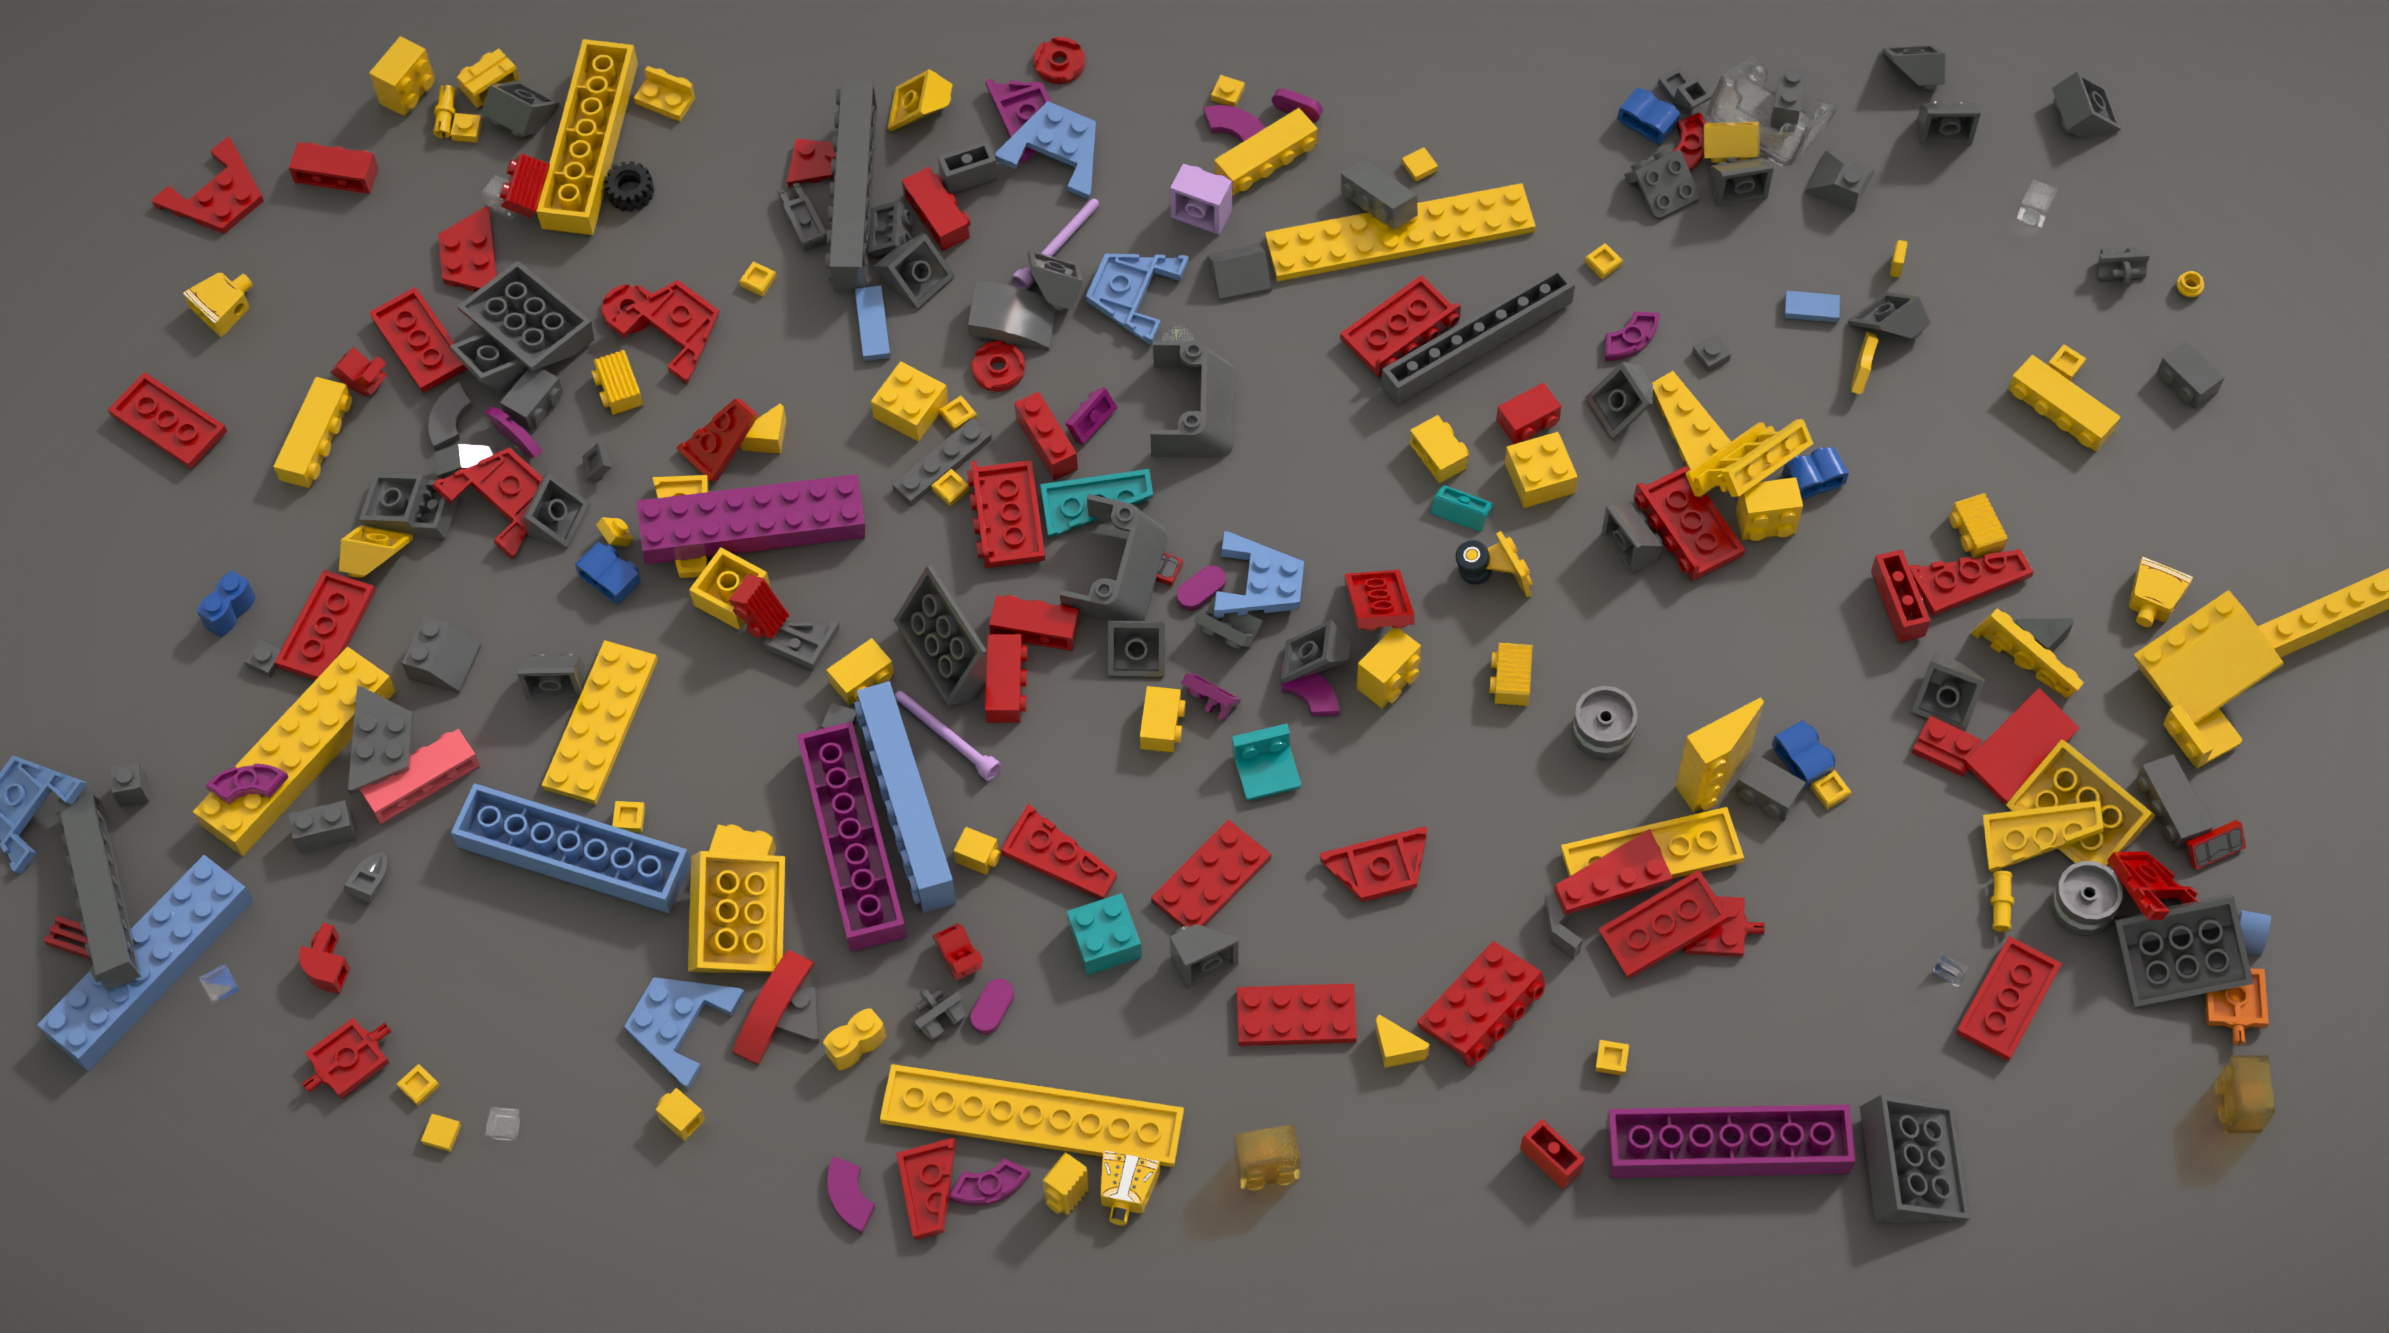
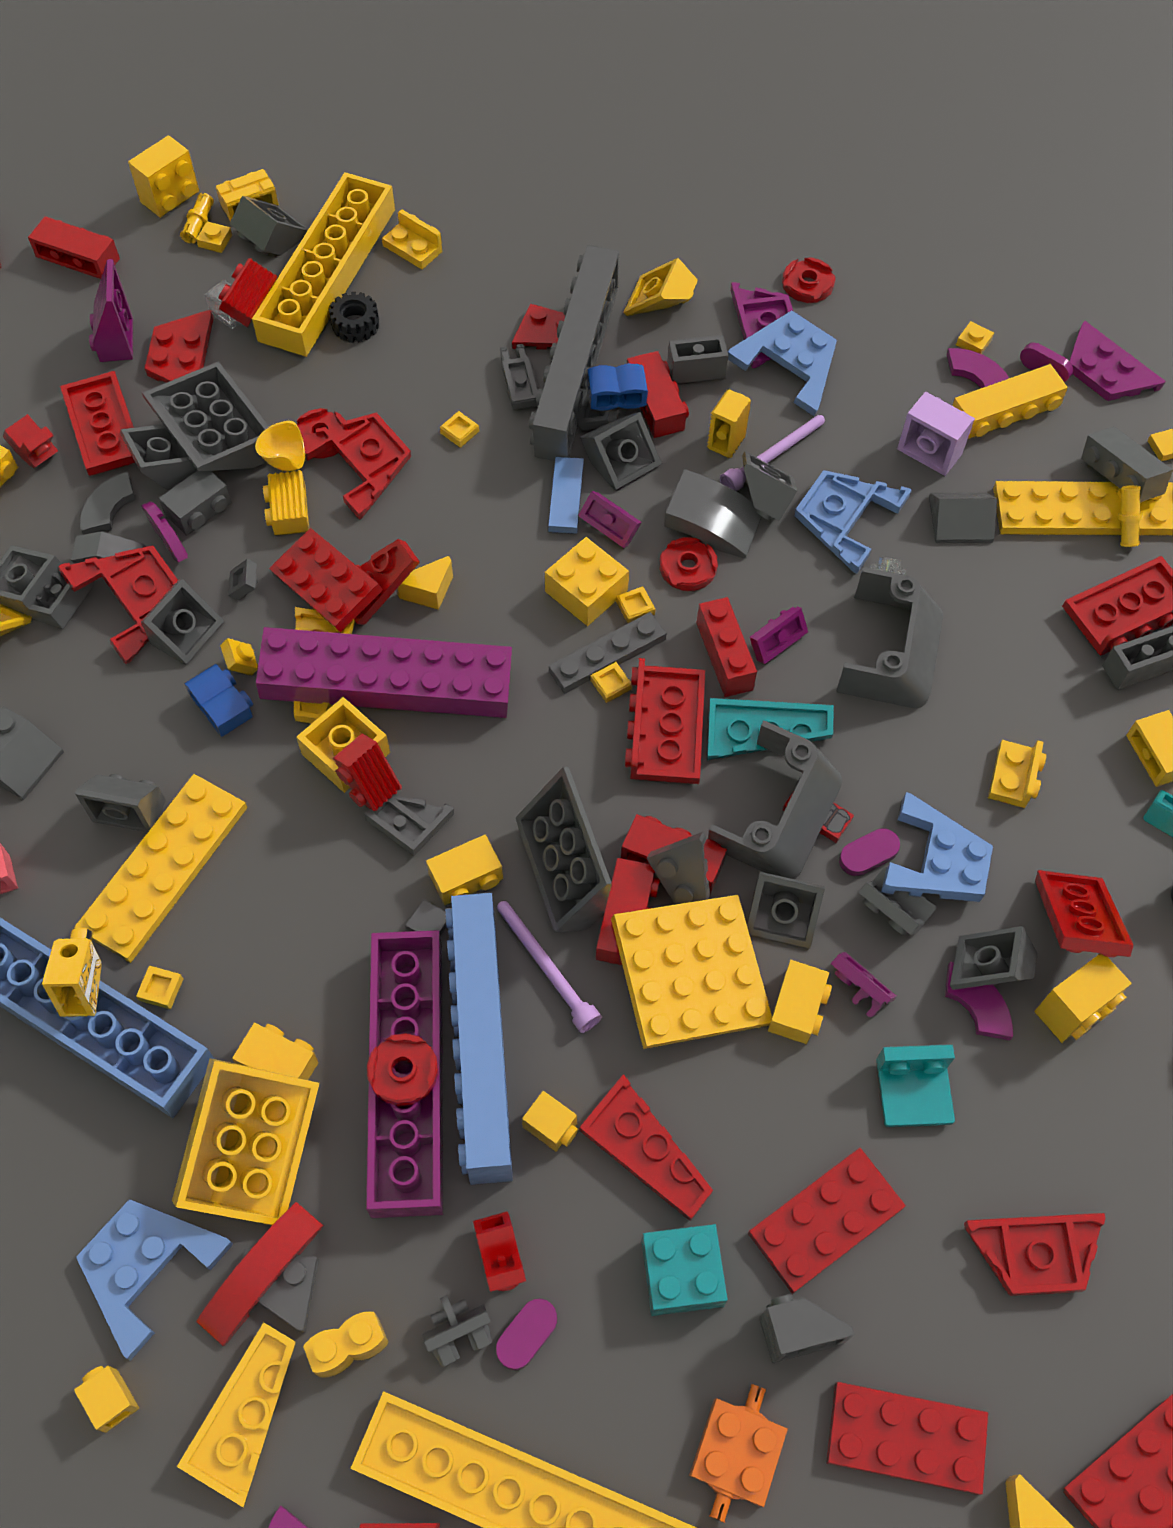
camera: 10 degrees right, 0 degrees up
(397, 237) = (111, 319): none -> magenta slope
(563, 804) = (73, 975): none -> yellow torso
(601, 331) = (282, 446): none -> yellow helmet
(674, 446) = (326, 579): none -> red plate
(786, 1107) = (235, 1429): none -> yellow wing
(853, 846) = (409, 1088): none -> red tile
(898, 212) = (617, 387): none -> blue brick
(918, 339) = (609, 519): none -> magenta plate
(1009, 226) = (728, 423): none -> yellow brick
(1044, 633) = (682, 869): none -> dark grey wing
(1067, 711) = (691, 971): none -> yellow plate
(1170, 1050) = (738, 1453): none -> orange plate
(1315, 496) = (1016, 773): none -> yellow bracket
(1357, 96) = (1108, 367): none -> magenta wing
(1387, 243) = (1130, 515): none -> yellow pin

